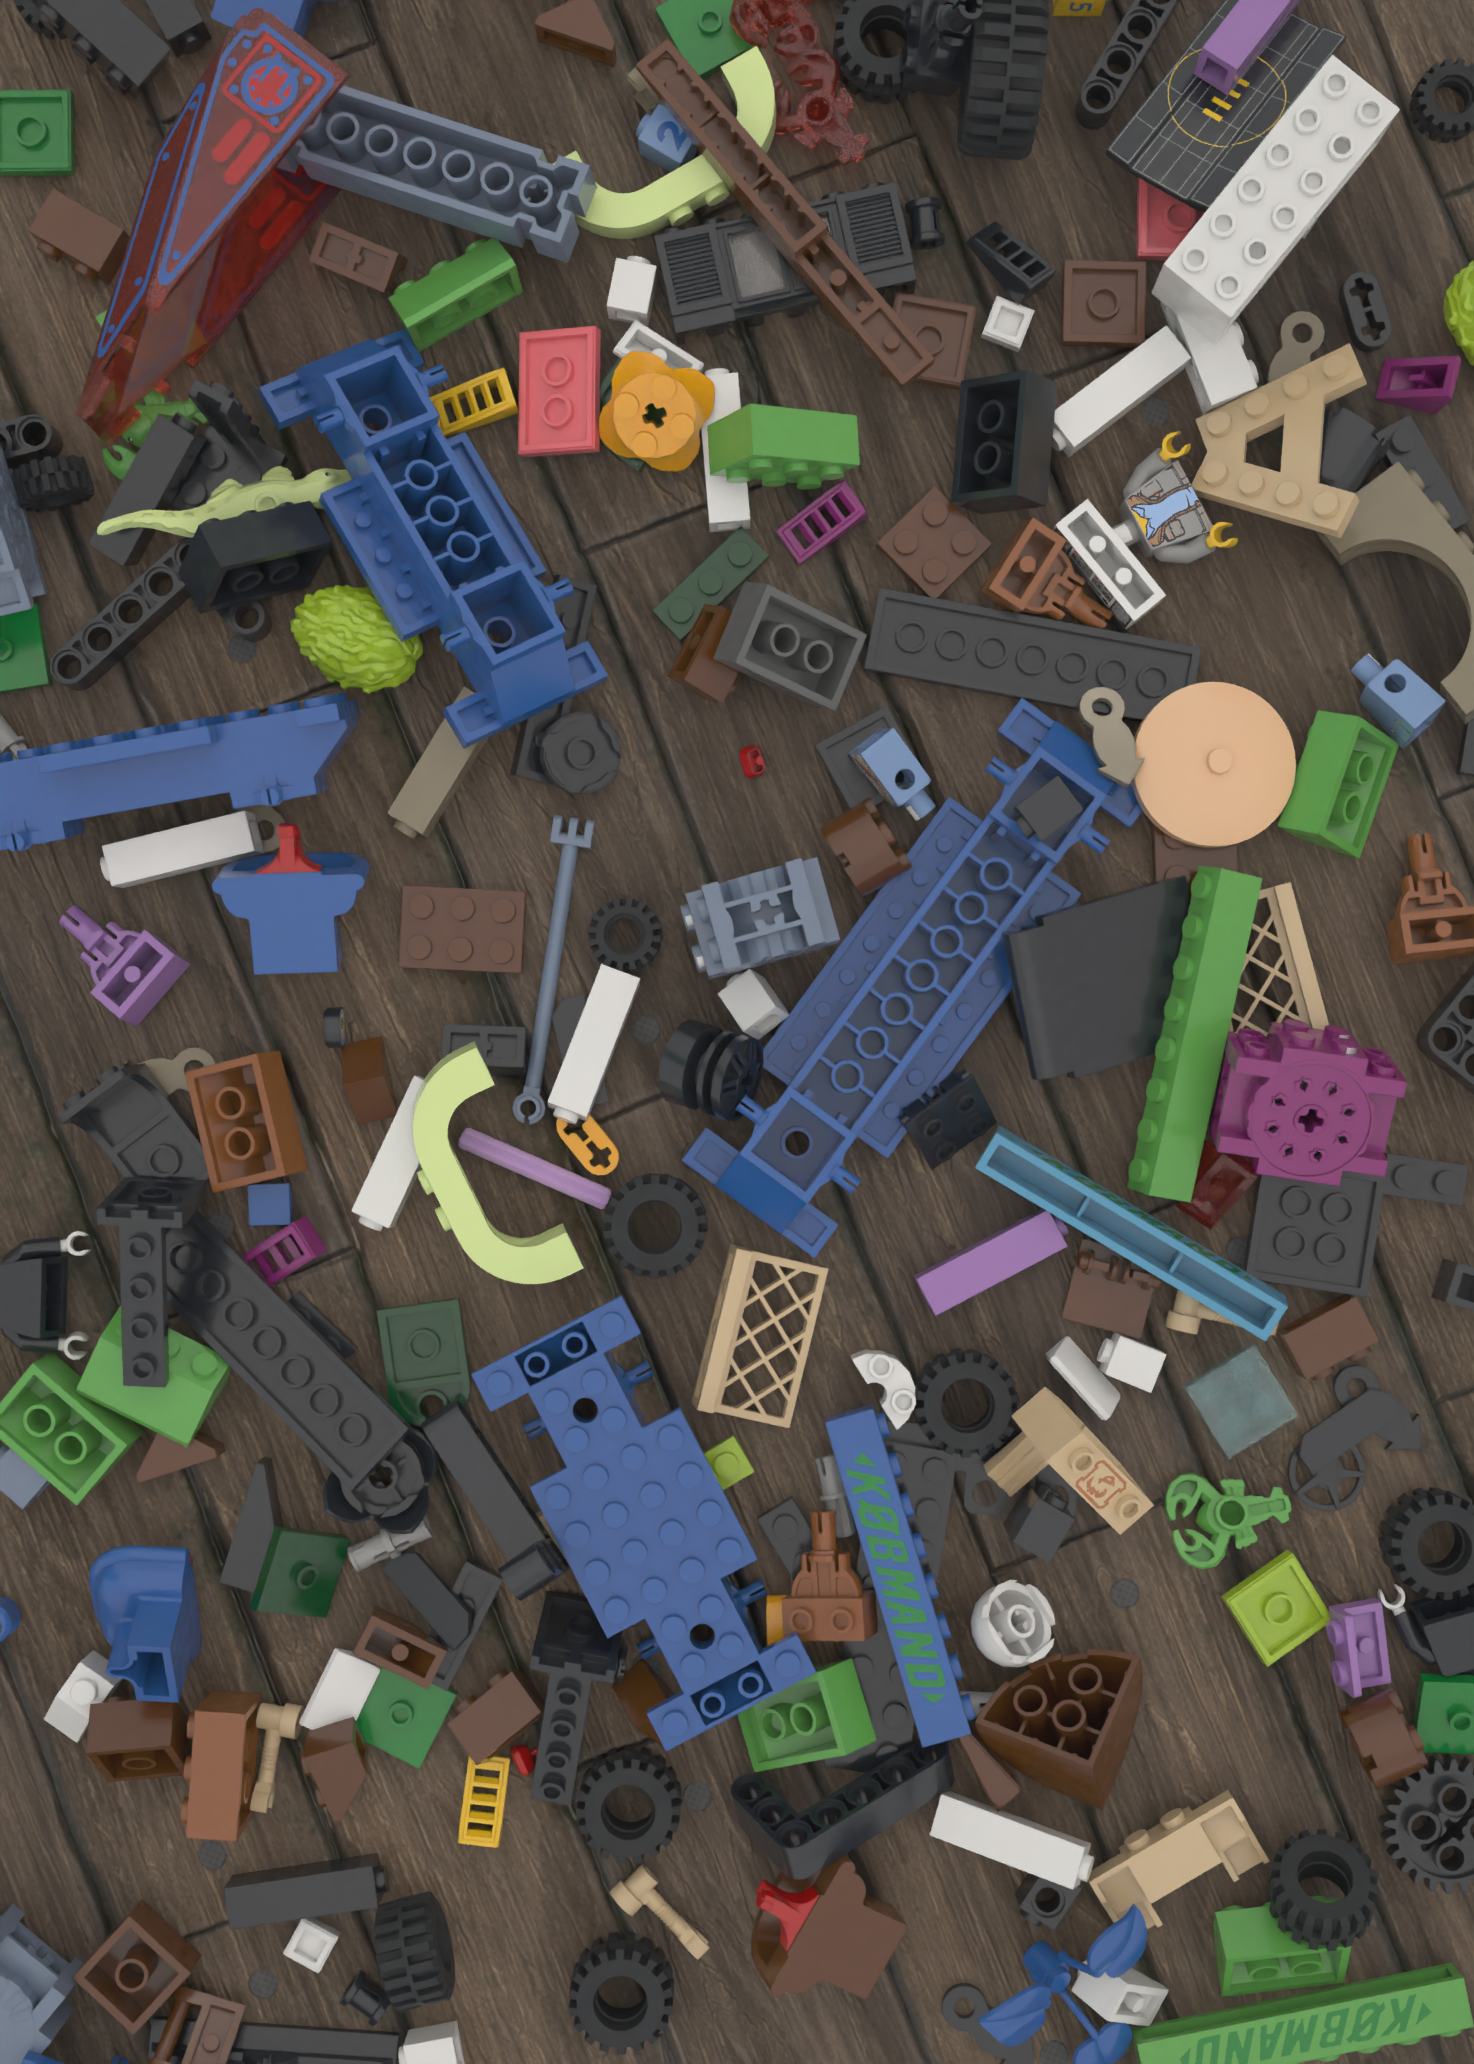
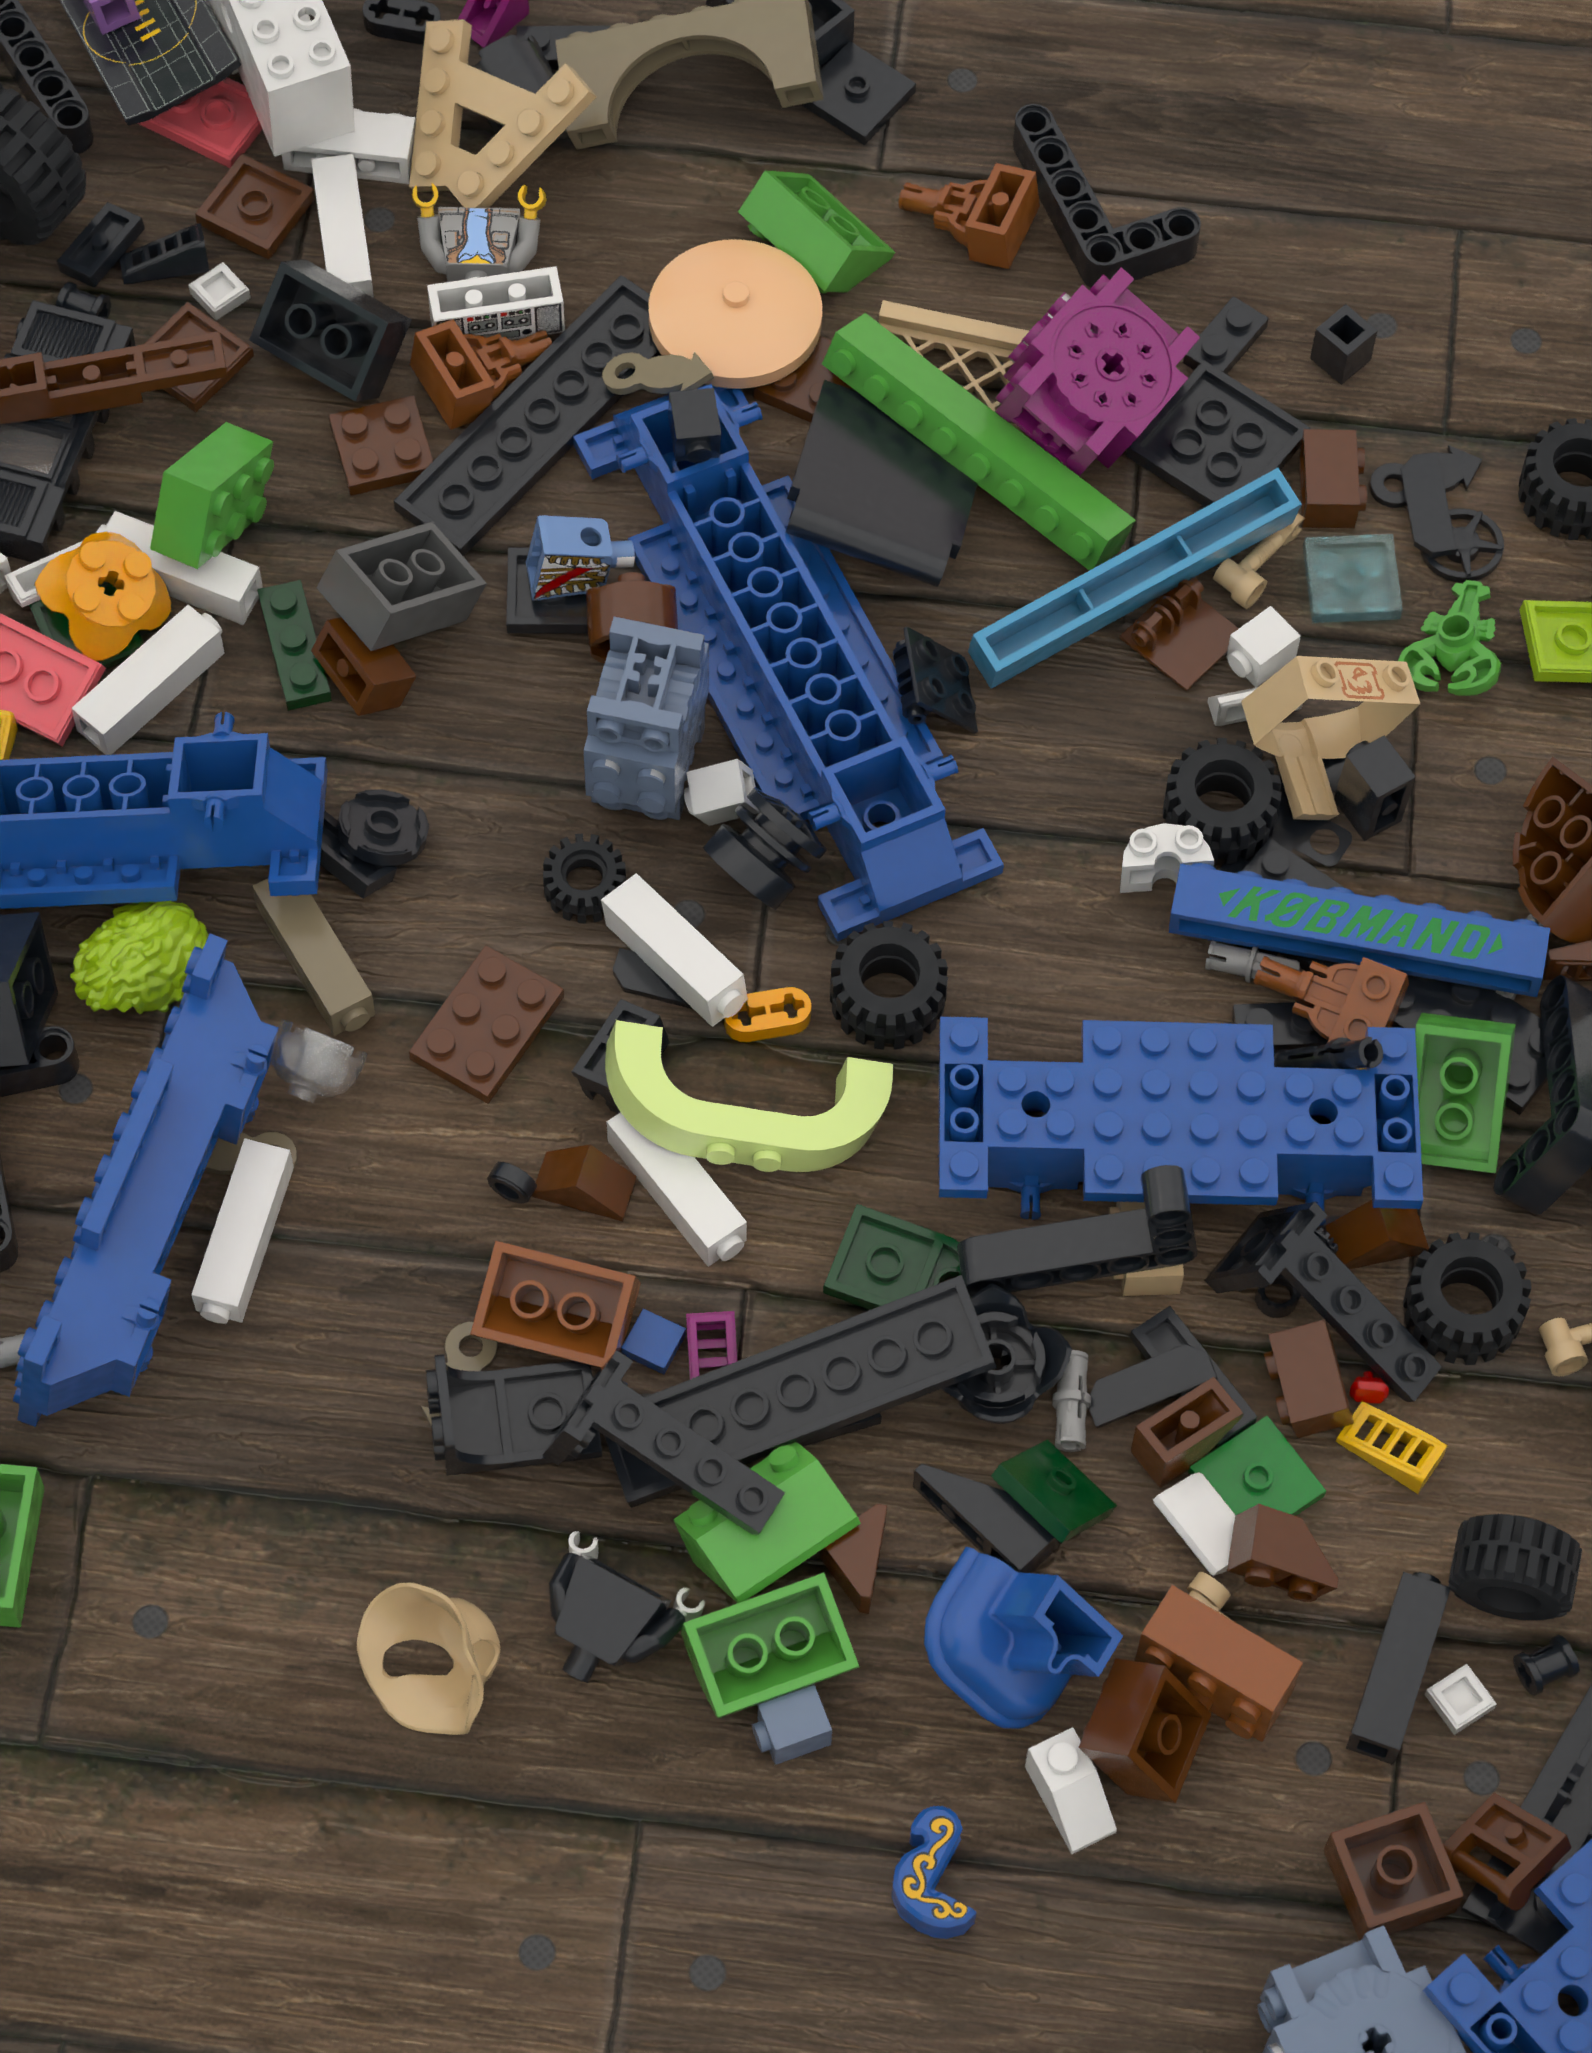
camera: 65 degrees left, 25 degrees down
(129, 970) = (323, 1343): medium lavender brick -> none
(293, 903) = (368, 1134): blue piece -> none
(350, 821) = (315, 1063): none -> clear cylinder
(535, 1168) = (781, 1064): lavender axle -> none
(570, 843) = (464, 885): sand blue hinge -> none
(610, 491) = (148, 680): none -> white brick
(725, 1328) = (1030, 977): tan fence -> none
(752, 761) = (487, 690): red rock -> none
(764, 1620) = (1336, 1054): none -> black pin
(827, 500) = (299, 494): magenta slope -> none
(991, 1260) = (1095, 718): medium lavender brick -> none
(994, 200) = (101, 244): none -> black plate
(1013, 1624) = (1464, 864): white cylinder -> none
(1218, 1185) = (1131, 485): clear red slope -> none
(1292, 353) = (402, 91): dark tan brick -> none
(1397, 698) = (767, 141): medium blue torso -> none

